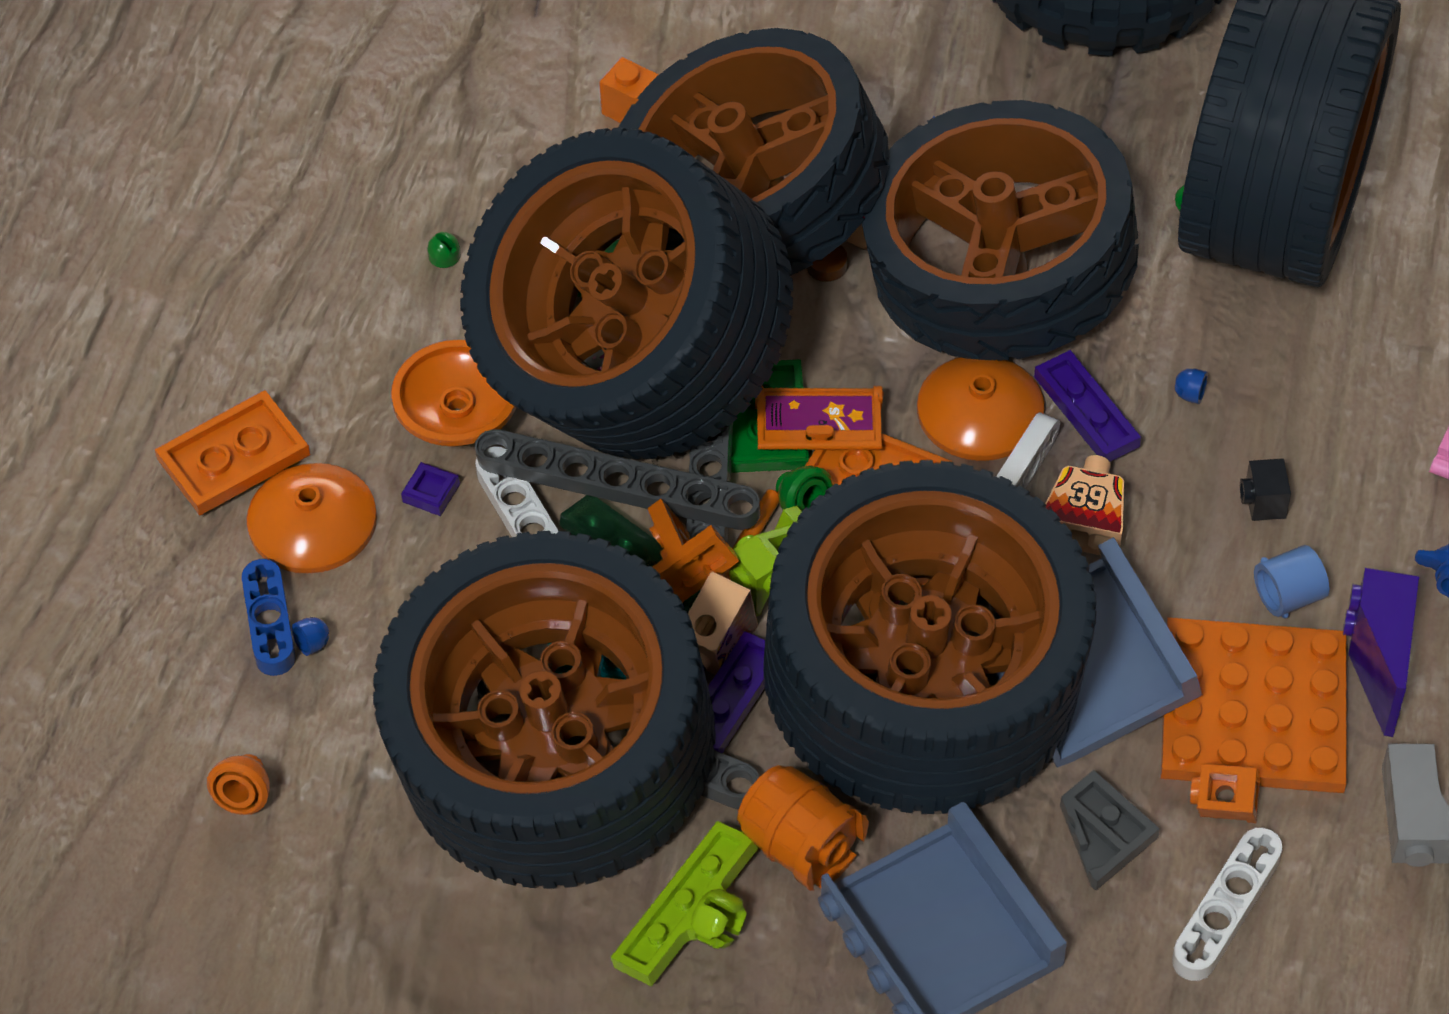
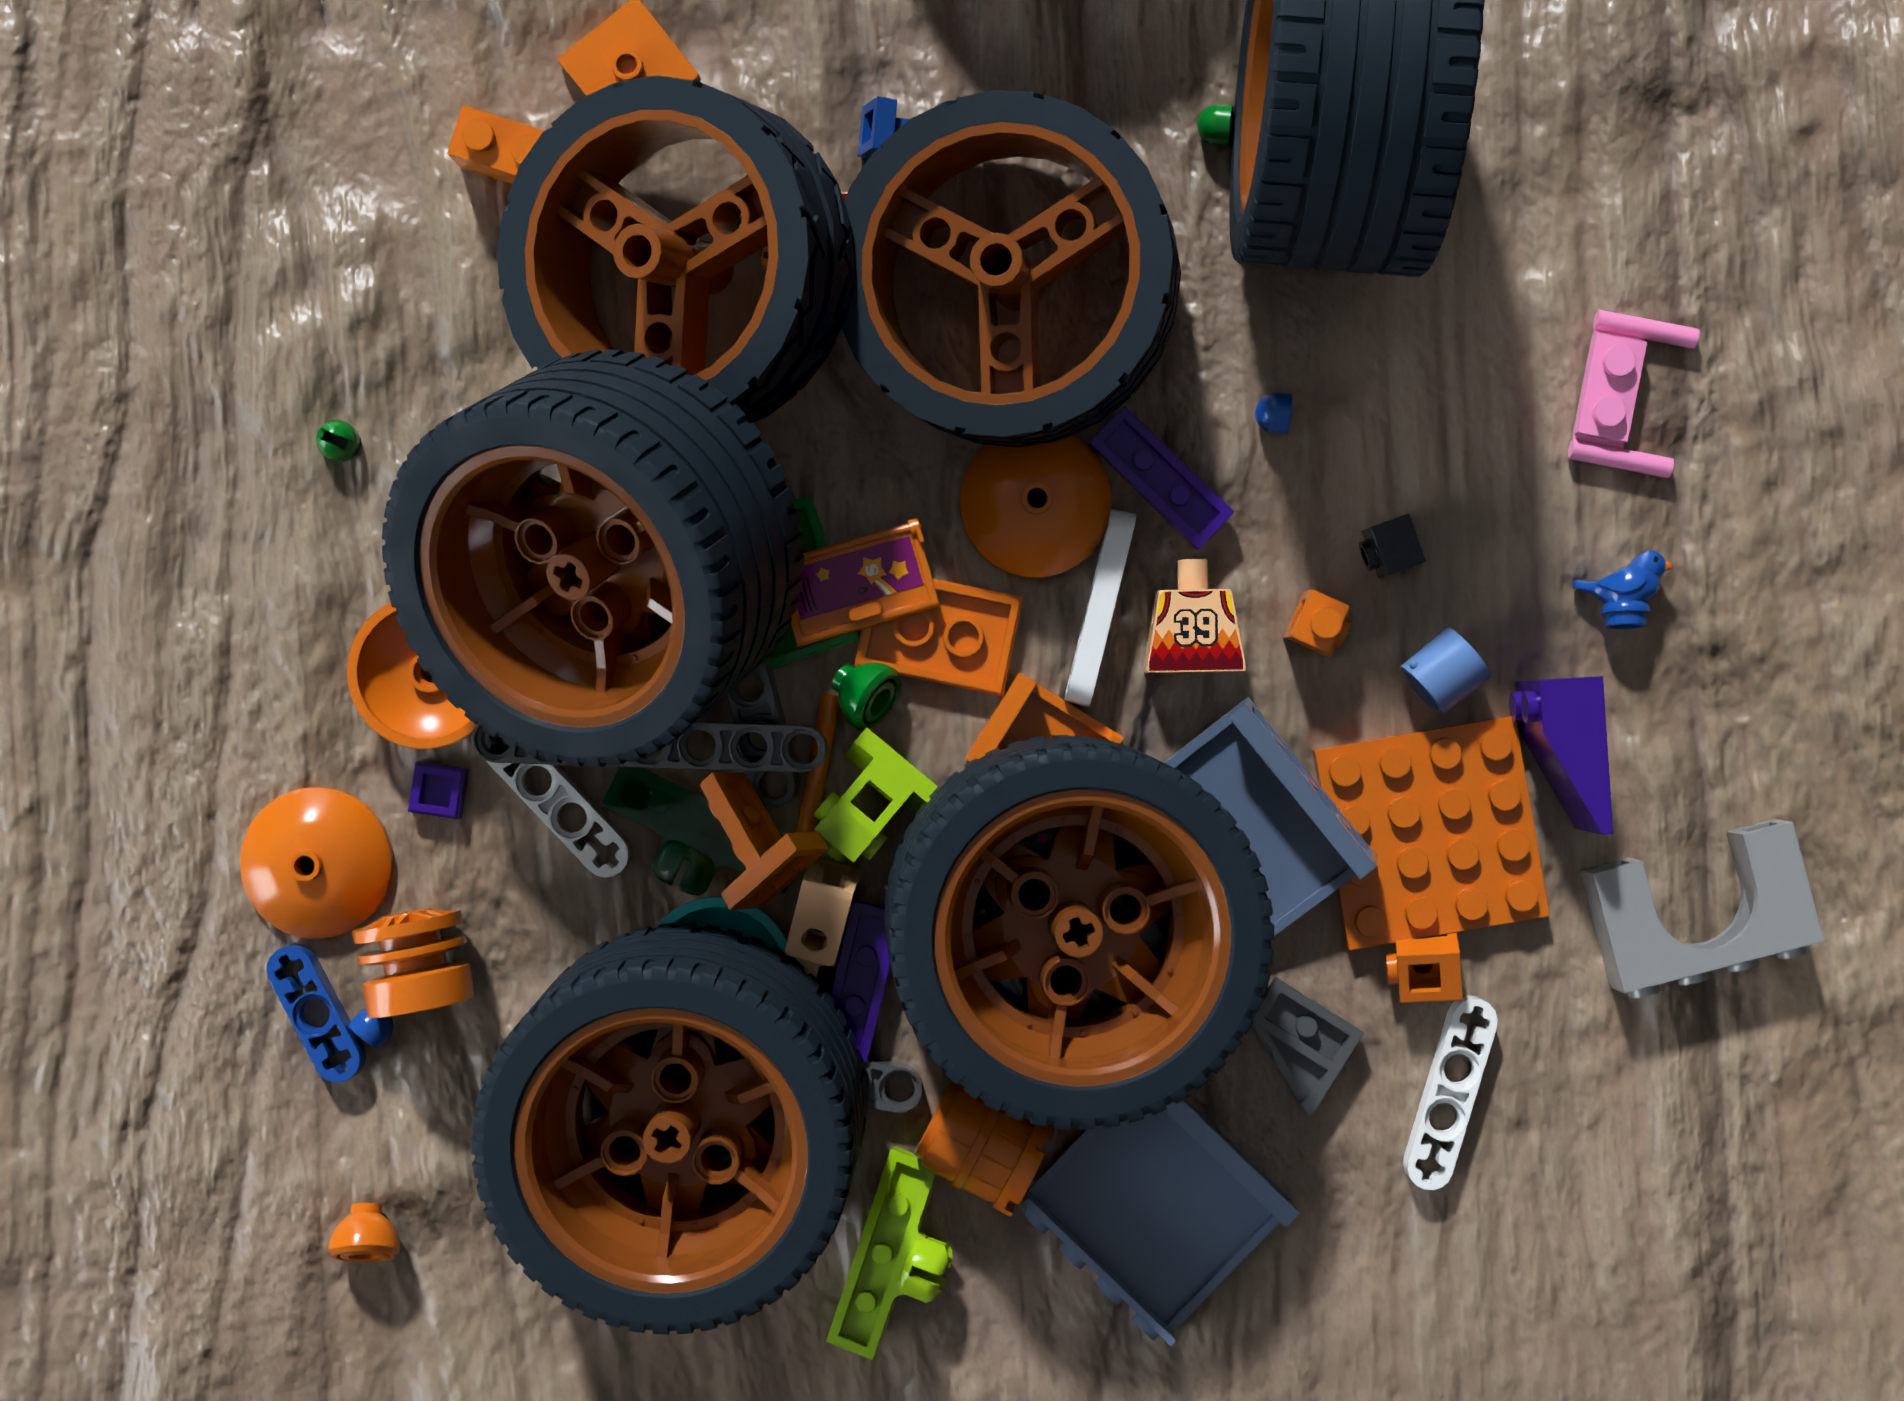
camera: 15 degrees left, 35 degrees up
(232, 452) = (194, 808): orange plate -> none
(366, 578) = (414, 963): none -> orange wheel
(1192, 526) = (1319, 623): none -> orange brick

